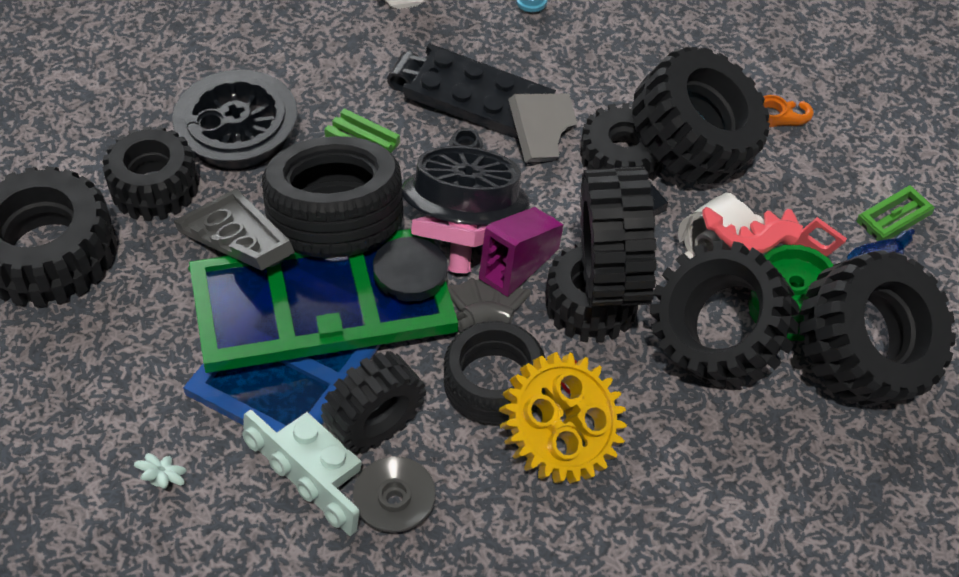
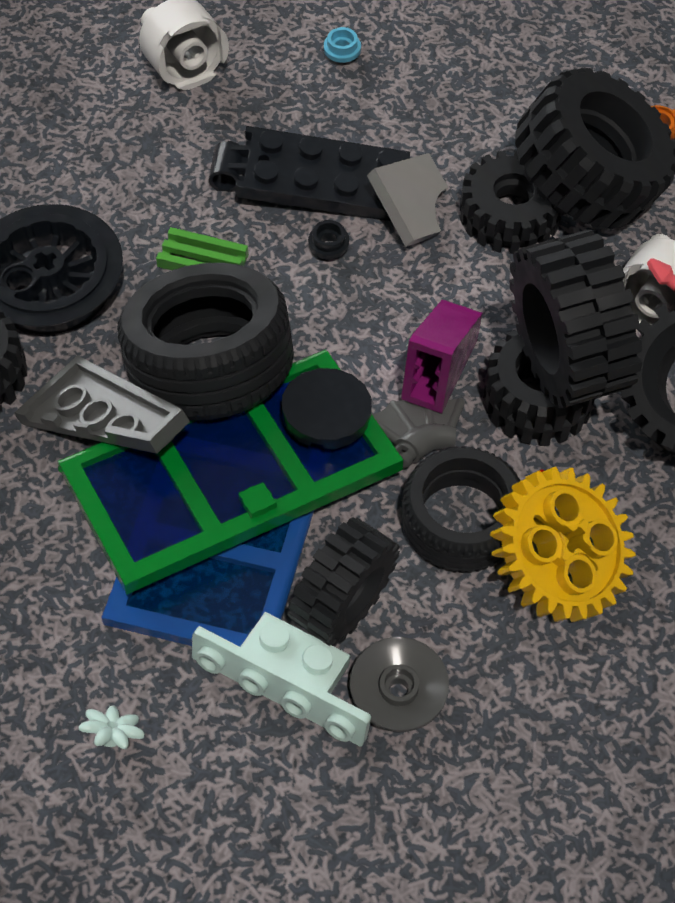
camera: 15 degrees left, 5 degrees up
(461, 236) = (366, 346): bright pink tile -> none
(465, 186) = (356, 292): black piece -> none

